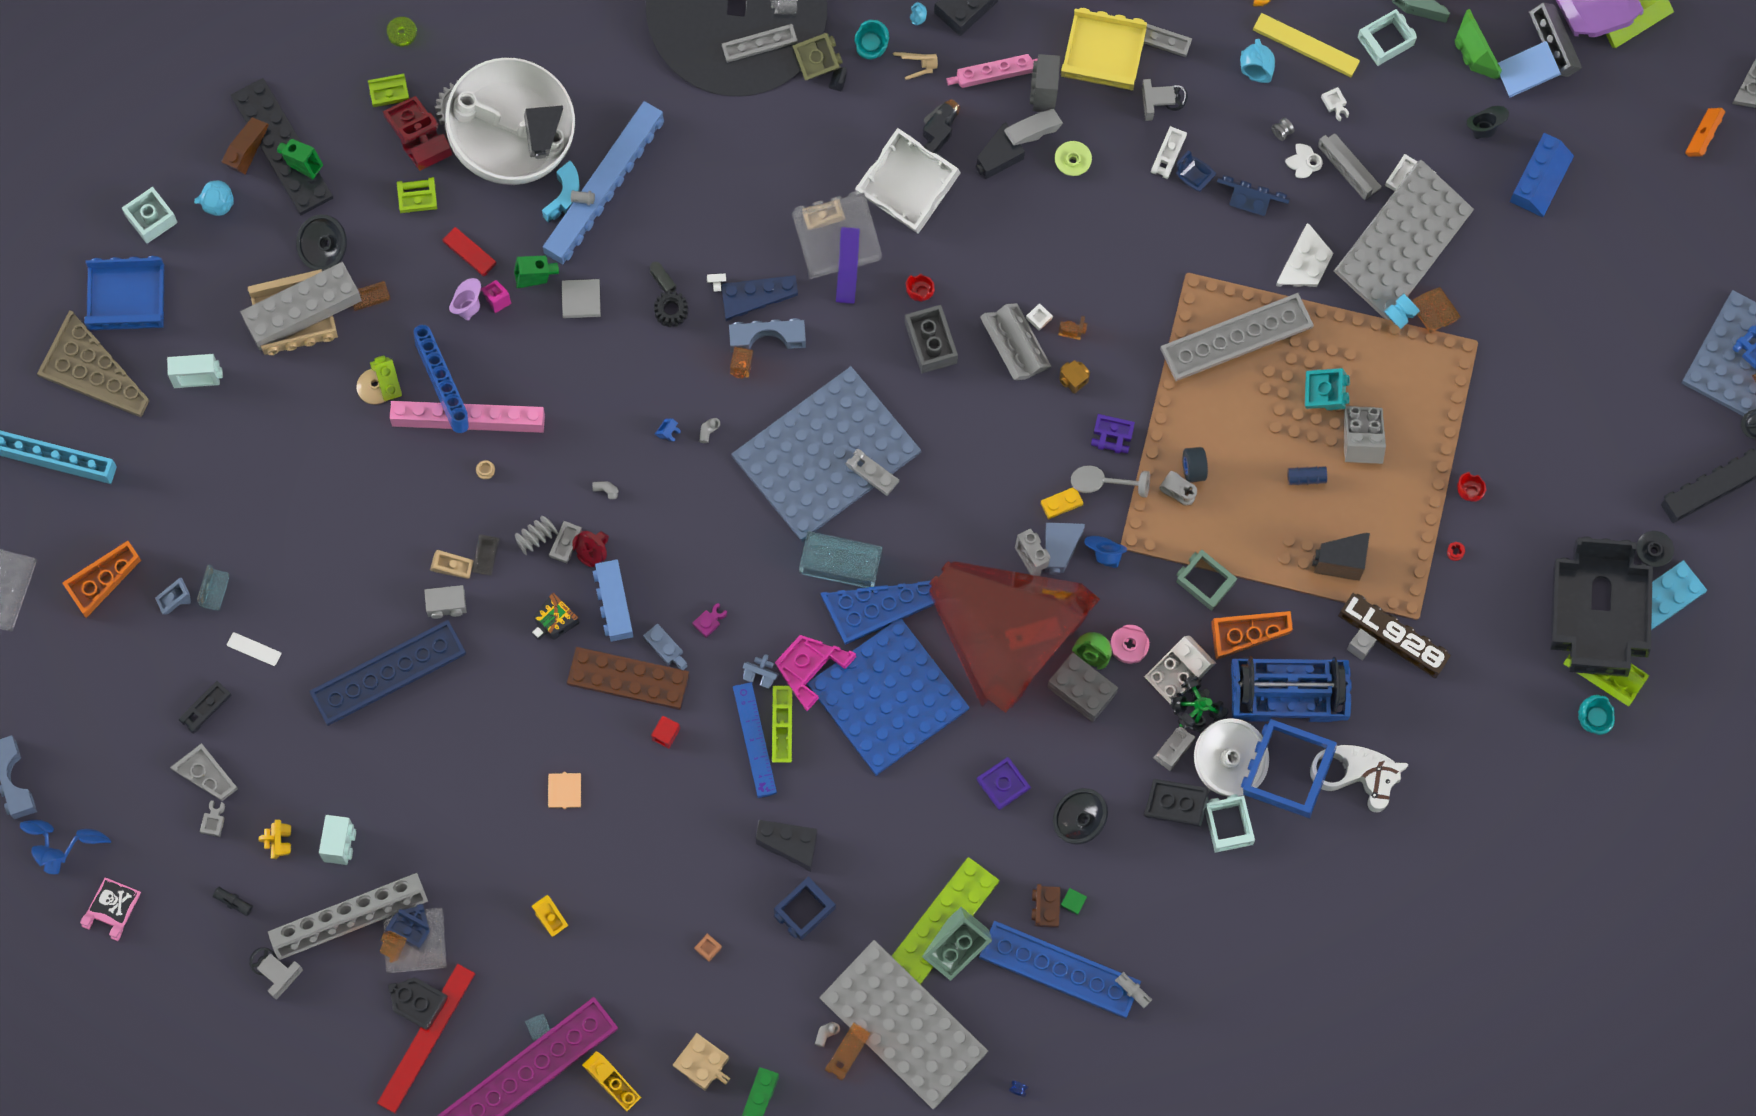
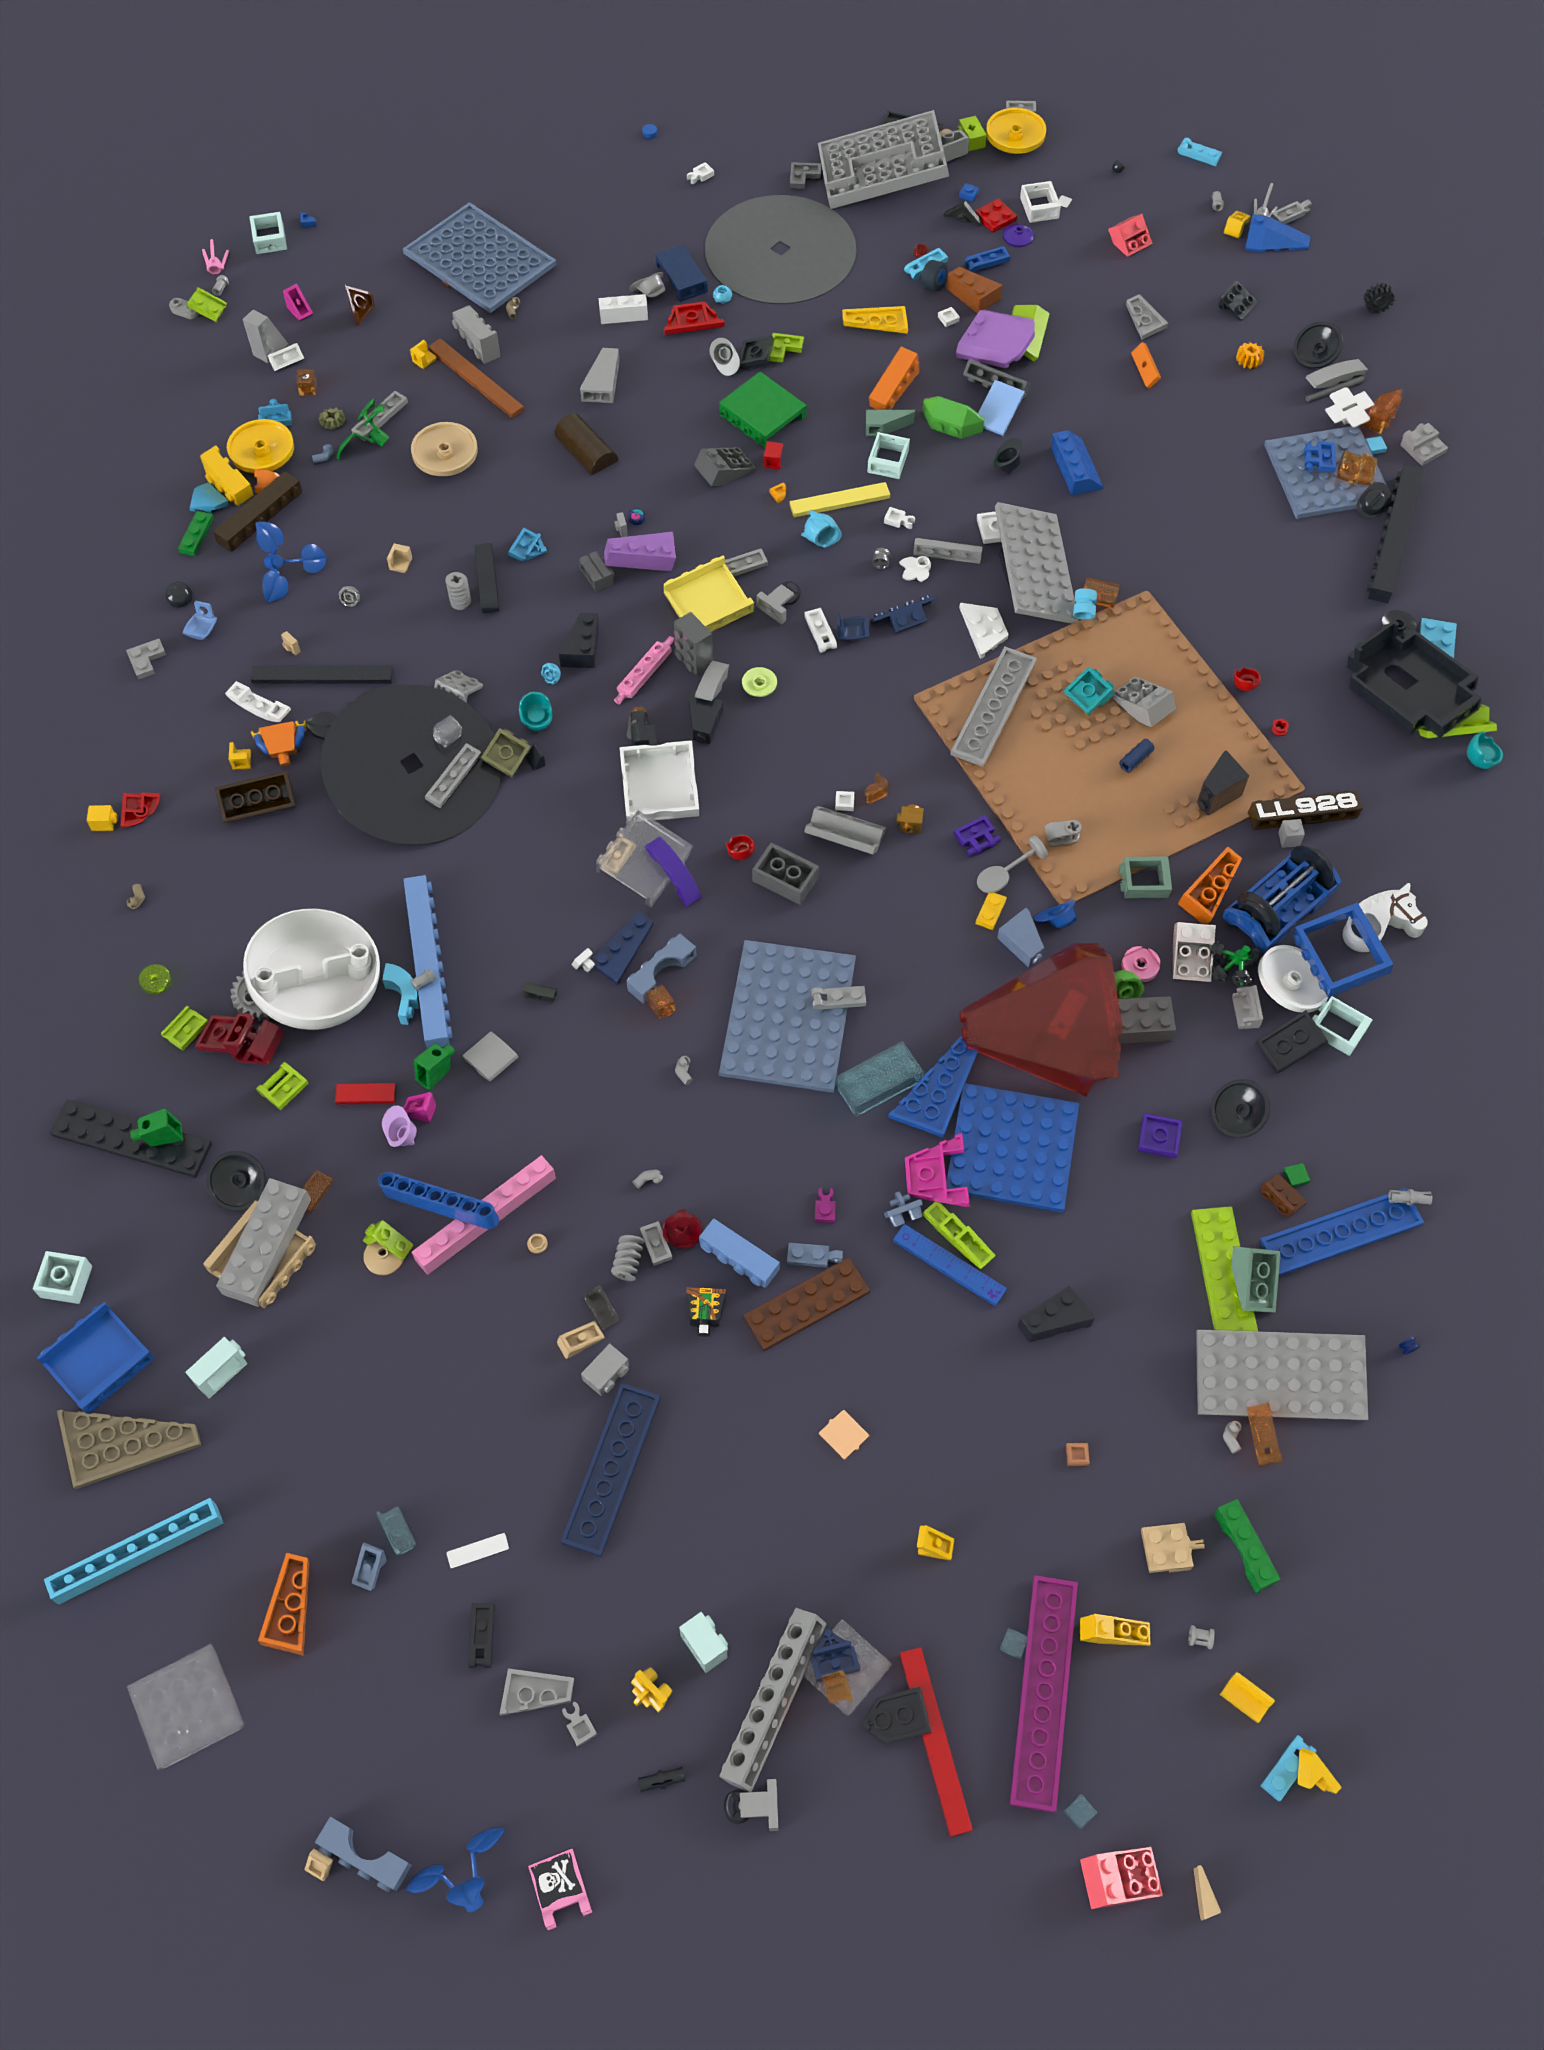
camera: 40 degrees left, 10 degrees down
(216, 198) = (110, 1219): medium azure helmet -> none
(244, 146) = (100, 1160): reddish brown slope -> none
(541, 128) = (345, 951): black slope -> none
(665, 732) = (879, 1317): red panel -> none
(666, 429) = (652, 1096): blue tile -> none
(671, 298) = (566, 1018): black tyre -> none
(818, 894) = (1119, 1336): dark blue window -> none
(928, 61) = (589, 698): tan plant -> none
(1031, 552) = (1011, 956): light grey plate -> none
(1195, 464) = (1058, 806): black wheel -> none

